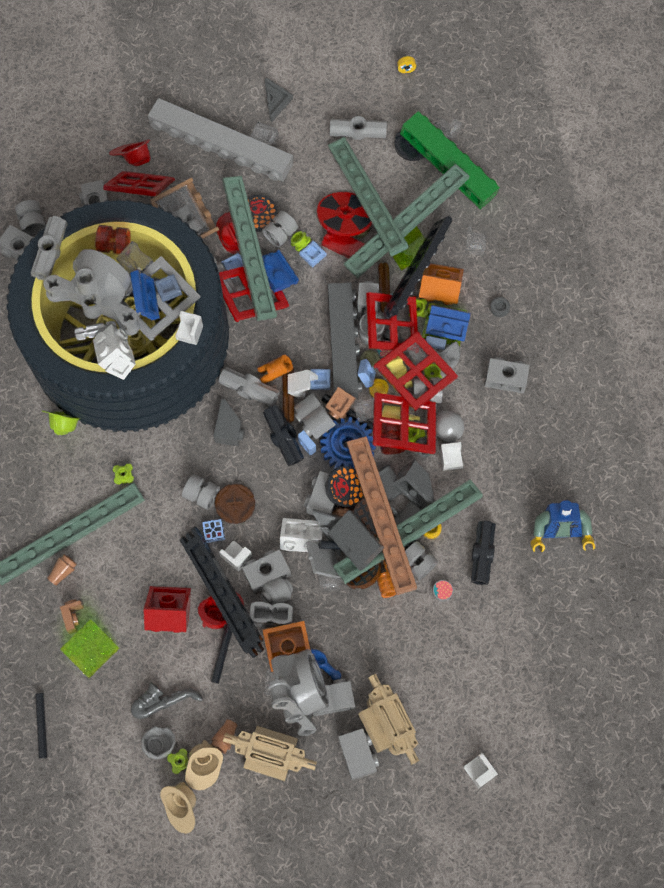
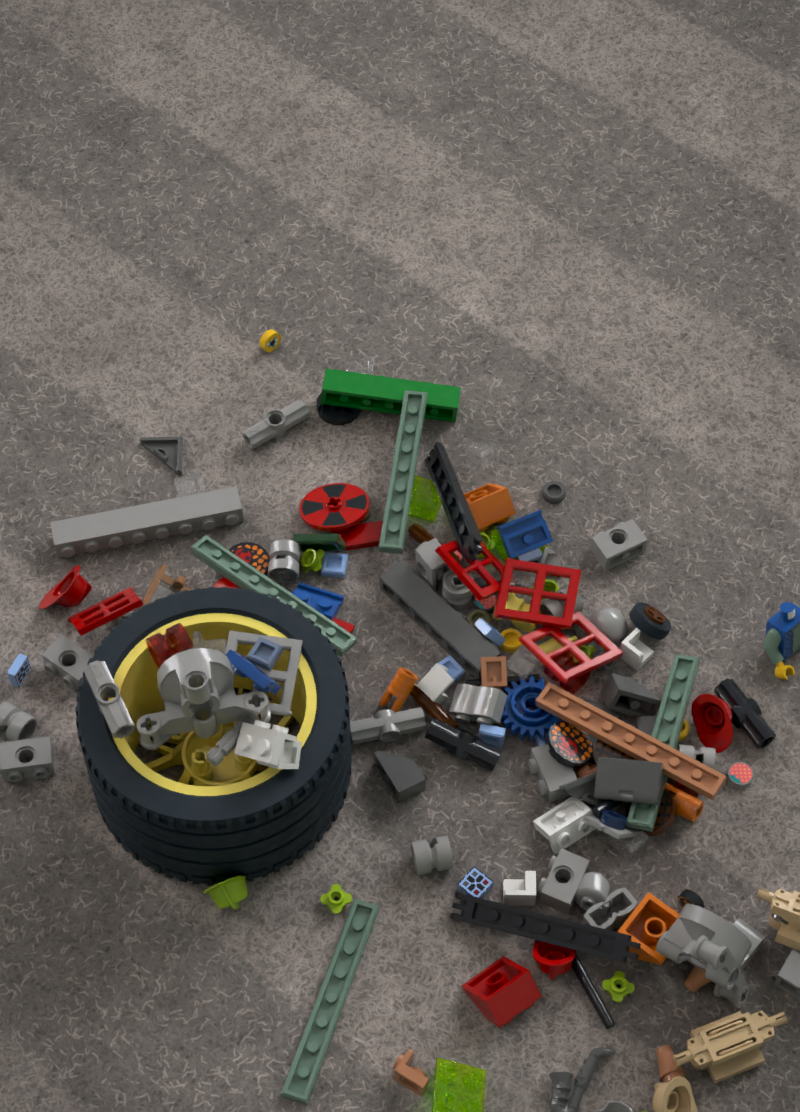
camera: 40 degrees left, 15 degrees down
(62, 185) = (19, 670): none -> light blue tile
(62, 568) = (358, 1037): nougat cone -> none
(189, 328) = (322, 673): white panel -> none
(235, 503) = (473, 844): reddish brown tile -> none
(244, 667) = (618, 994): none -> lime plate
(312, 232) = (326, 542): none -> dark green tile
(326, 557) = (613, 819): none -> dark blue tile
(332, 645) = (690, 897): none -> black tile
(368, 196) = (345, 474): sand green tile -> none
(456, 542) = (713, 721): none -> red piece
(477, 443) = (650, 621): none -> black wheel

